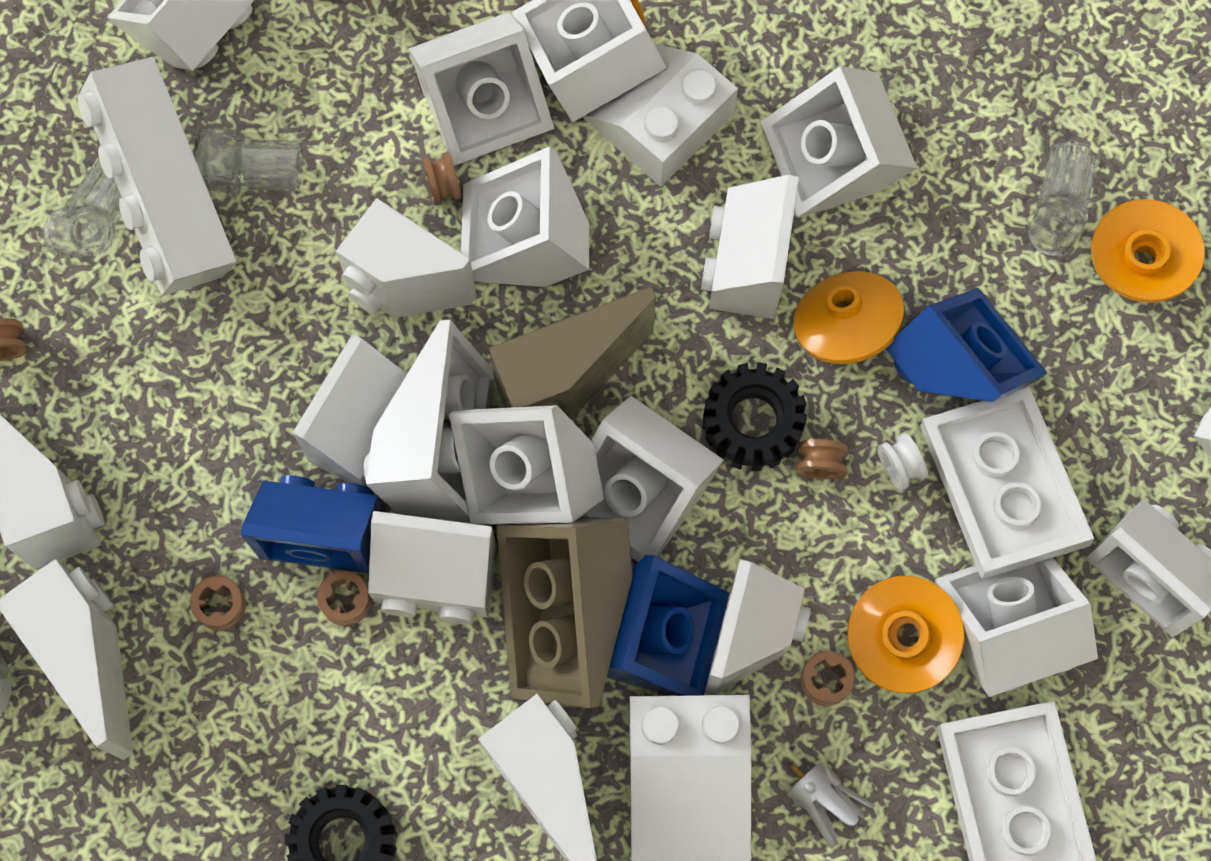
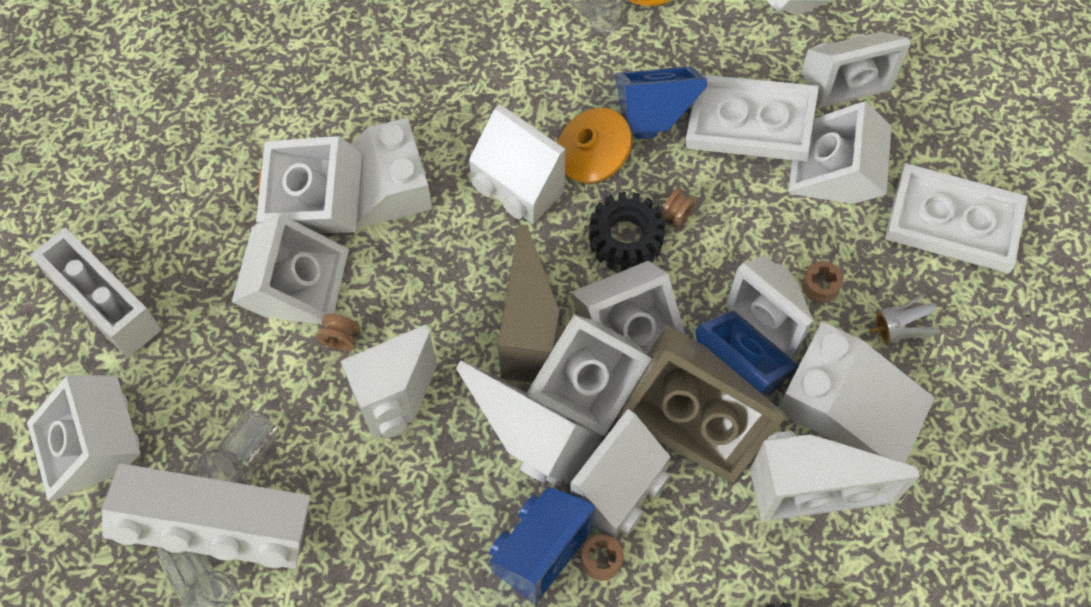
camera: 60 degrees left, 10 degrees down
(345, 410) = (481, 470): white slope -> none
(525, 224) = (406, 292): white slope -> none
(839, 140) = (470, 87): white slope -> none
(876, 629) = (835, 205): light orange dish -> none
(903, 461) = (706, 165): white bush -> none

